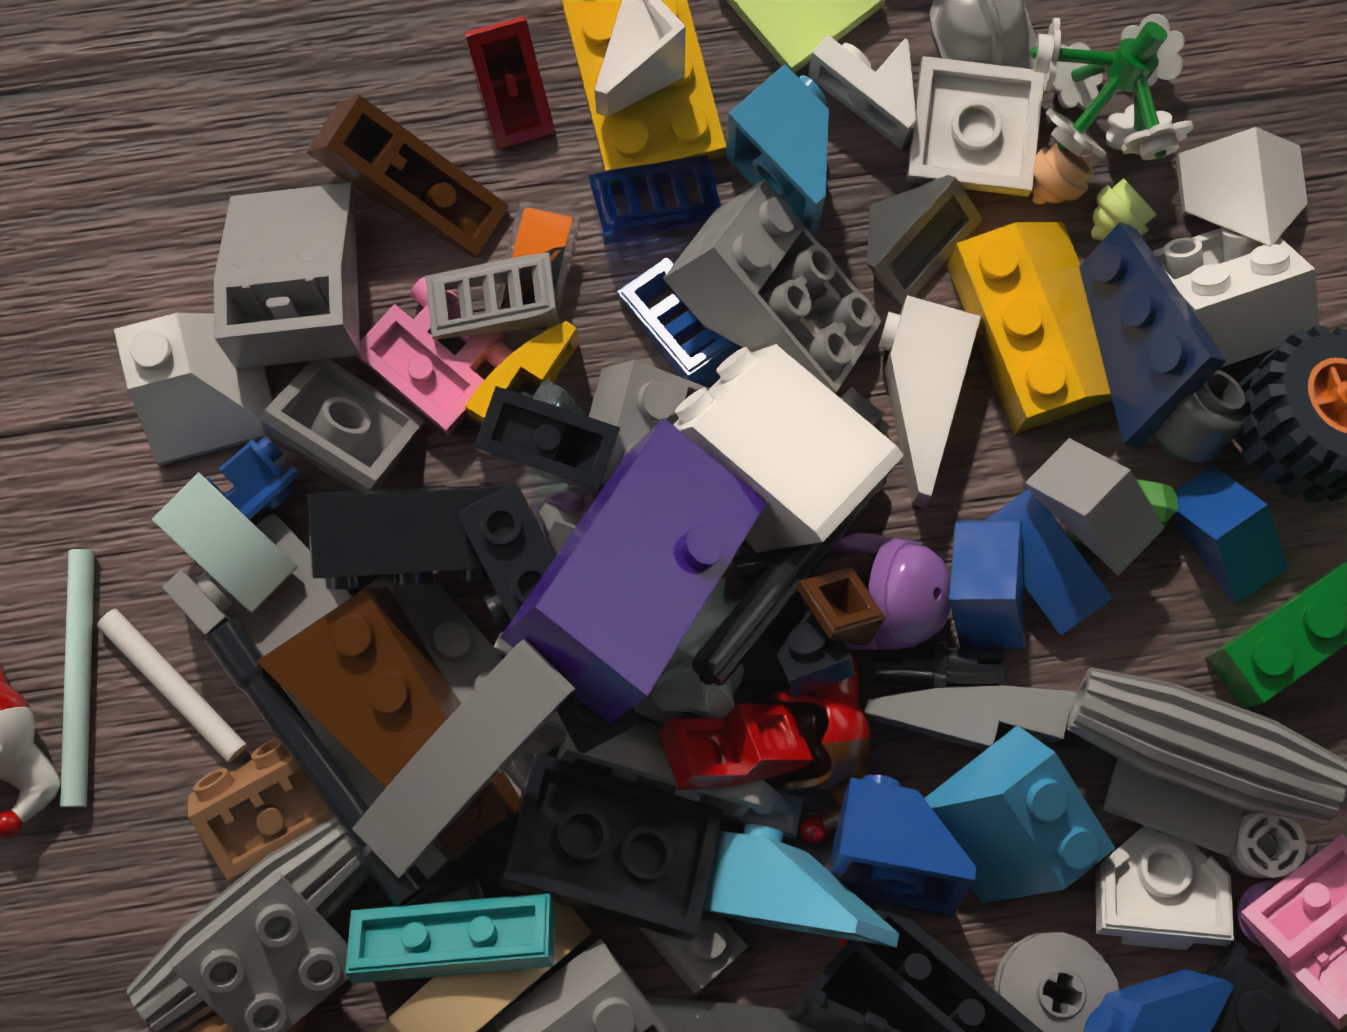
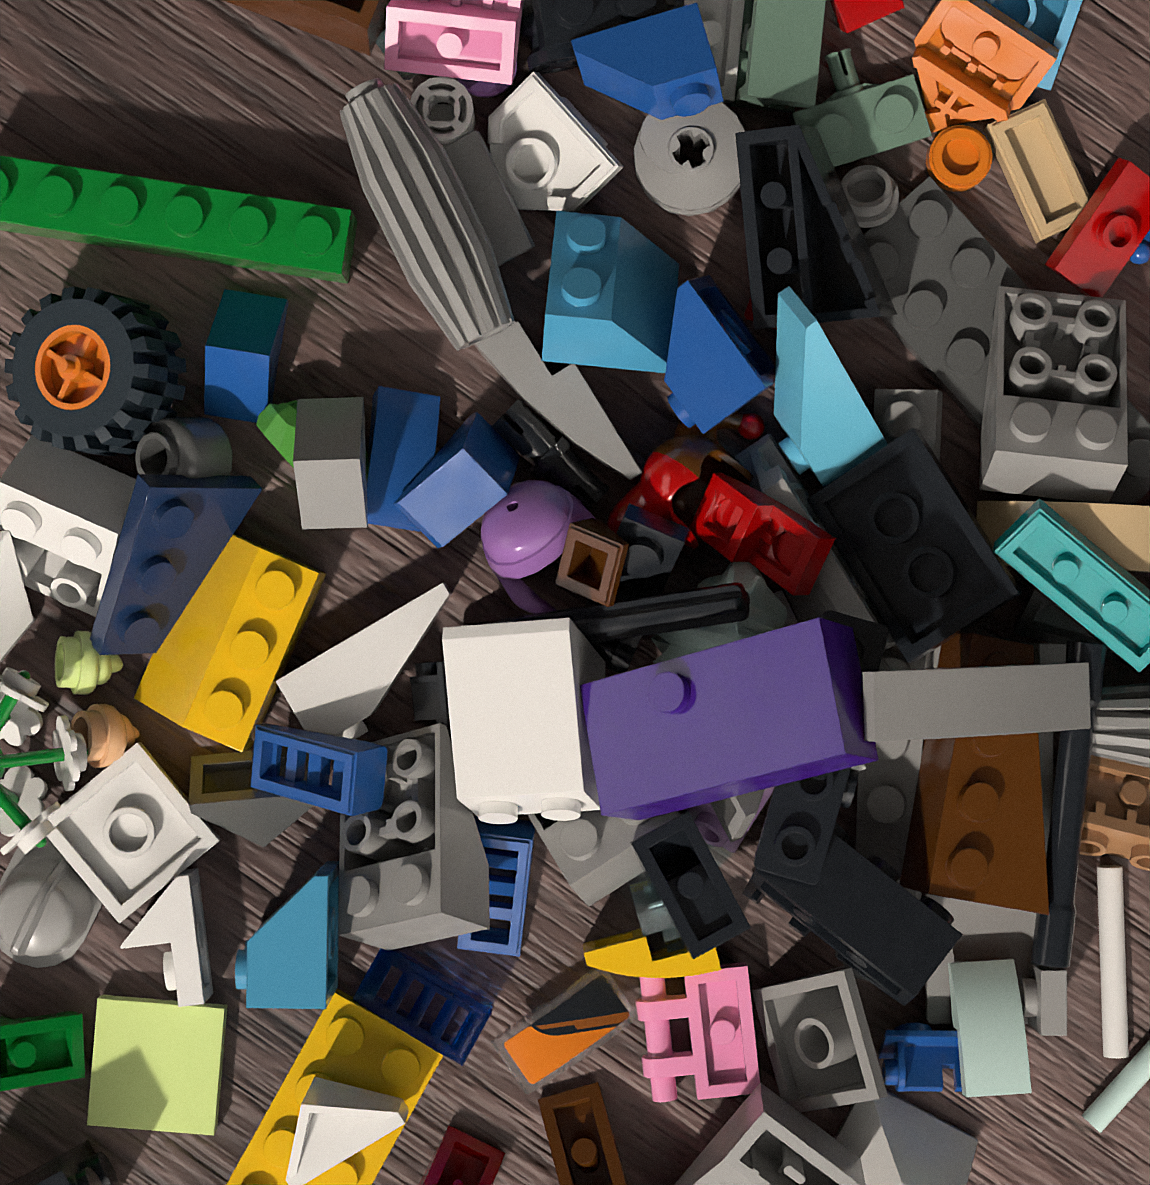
camera: 135 degrees left, 10 degrees up
(510, 271) = (580, 1005): light grey slope -> none
(886, 284) = (356, 777): none -> blue slope

